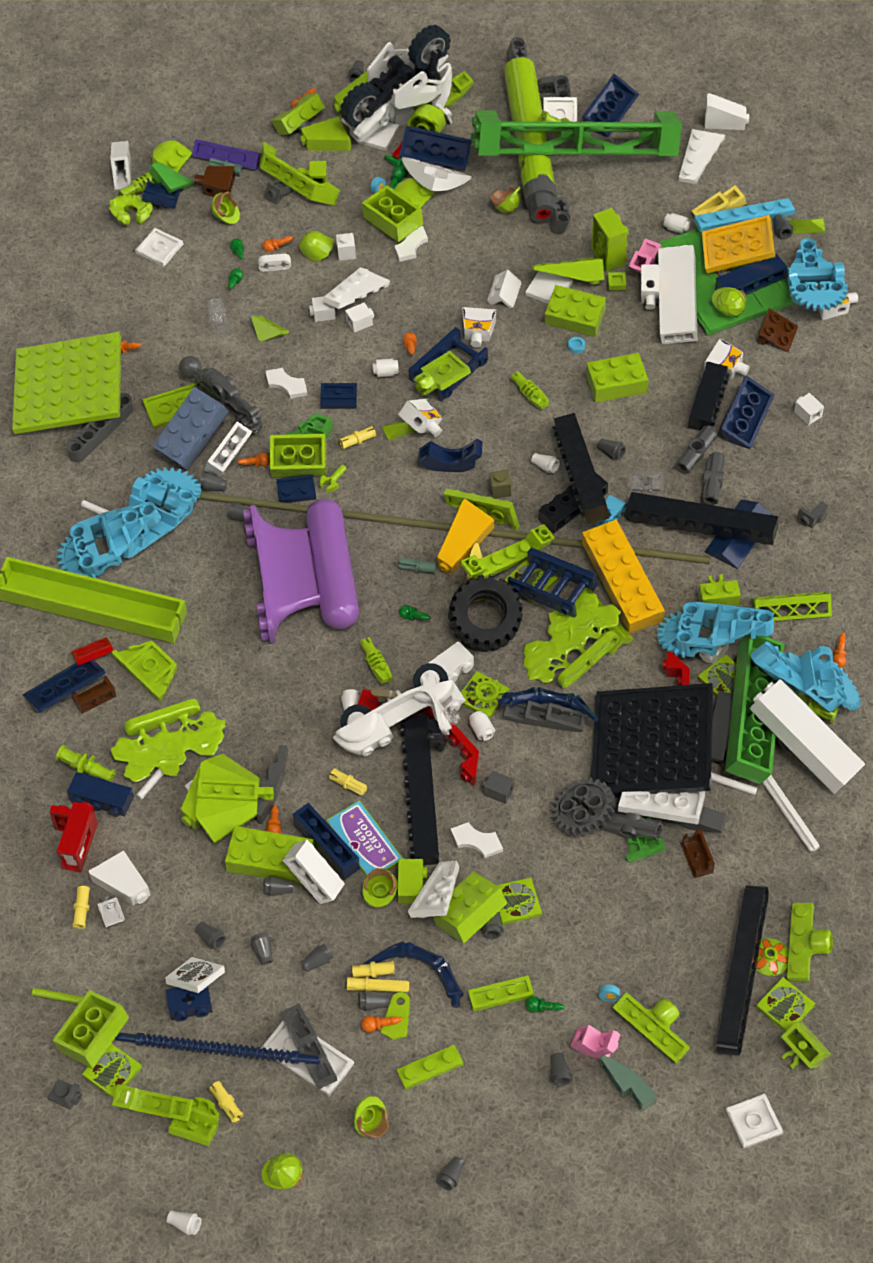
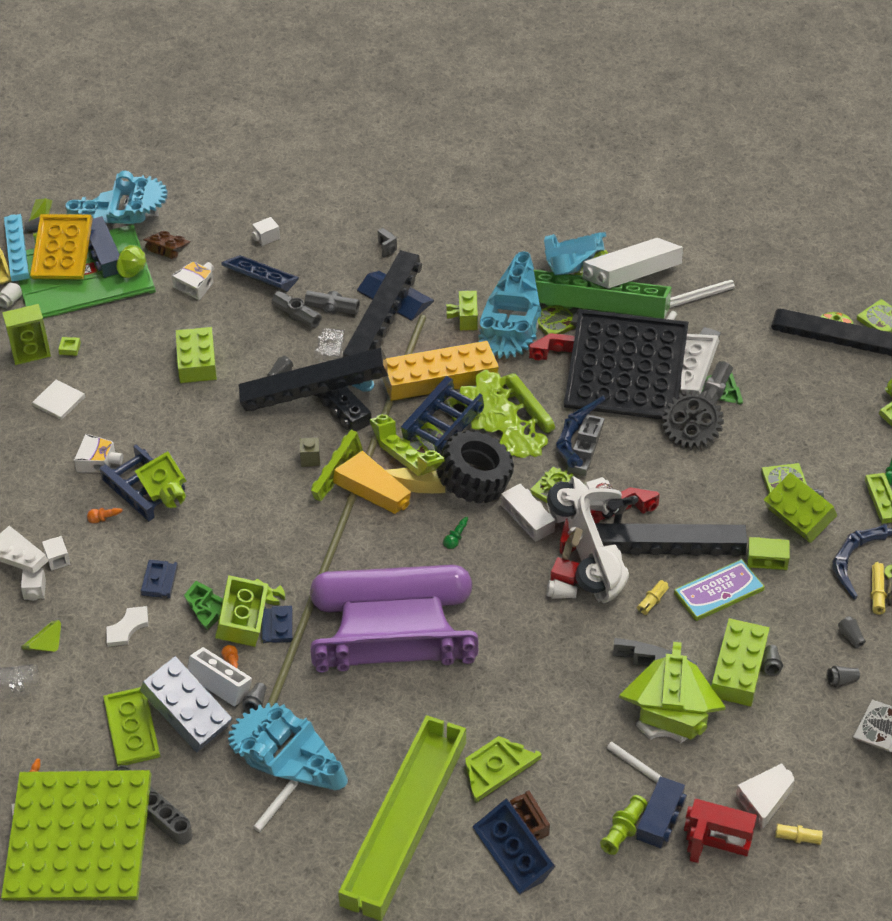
camera: 85 degrees left, 10 degrees down
(92, 651) = (470, 819): red tile -> none
(110, 911) = (802, 805): bracket -> none
(119, 534) = (322, 774): medium azure connector -> none
(167, 748) = (602, 749): lime plant -> none
(212, 936) = (829, 718): dark grey cone -> none
(222, 390) = (127, 678): dark grey arm -> none
(236, 511) = (301, 674): dark grey cone -> none
(273, 823) = (707, 661): orange bar -> none
(313, 872) = (769, 616): white brick -> none
(326, 841) = (714, 618): dark blue brick -> none
(357, 437) = (220, 565): light yellow pin -> none
(373, 969) = (862, 589): light yellow pin -> none
(376, 661) = (510, 566): lime hinge -> none
(379, 887) = (779, 573): lime piece -> none
(385, 367) = (133, 534): white brick -> none
(397, 429) = (213, 530): lime slope -> none
(417, 565) = (396, 526): sand green axle -> none
(421, 416) = (212, 503): white torso -> none
(437, 892) = (794, 525): white wing -> none
(450, 460) = (271, 482): dark blue arch -> none
(485, 843) = (716, 510): white tile -> none
(498, 787) = (666, 481): dark grey brick -> none
(504, 289) = (51, 434): white panel -> none
(530, 390) = (193, 422): lime hinge -> none
(548, 463) = (287, 418): white cone -> none
(575, 310) = (103, 376): lime brick -> none
(576, 345) = (141, 385): medium azure tile -> none
(583, 269) = (45, 369): lime wedge -> none
(609, 993) = (879, 421): medium azure tile -> none
(645, 256) = (54, 320): bright pink brick -> none
(650, 285) = (89, 318): white torso -> none
(677, 294) = (105, 299): white brick -> none
(697, 854) = (740, 352): reddish brown hinge -> none
(708, 396) = (236, 293): black brick -> none
(800, 598) = (478, 265): lime fence -> none
(805, 942) = (823, 297): lime plate -> none
(839, 654) = (538, 247): orange bar -> none

